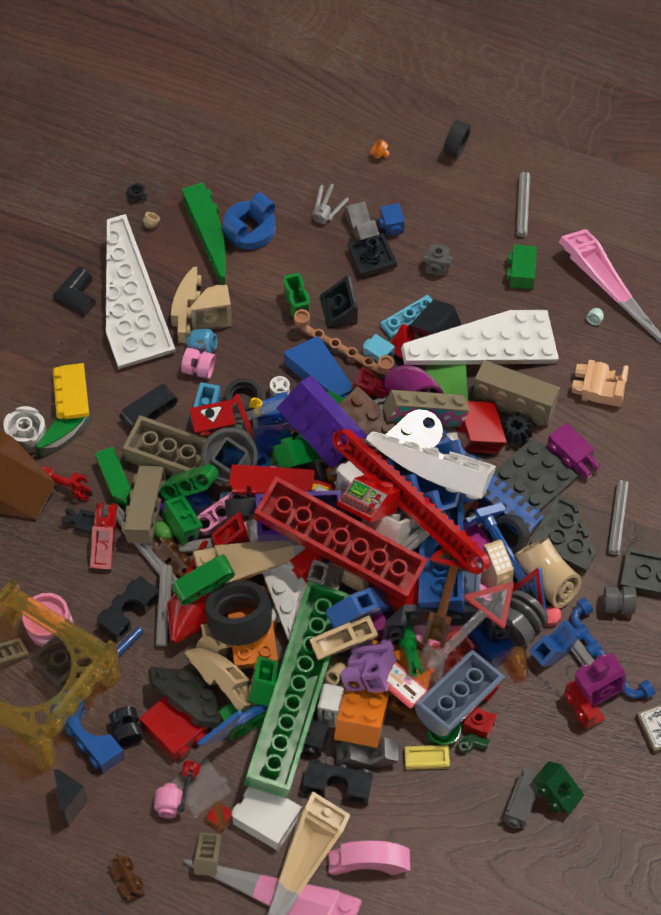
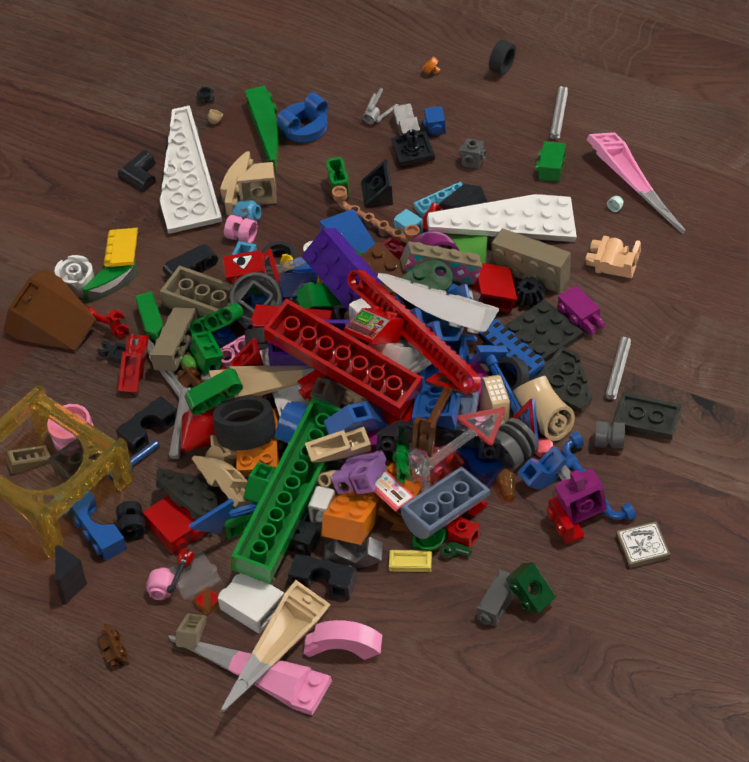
camera: 10 degrees right, 10 degrees down
(288, 606) = (289, 420): none -> blue brick

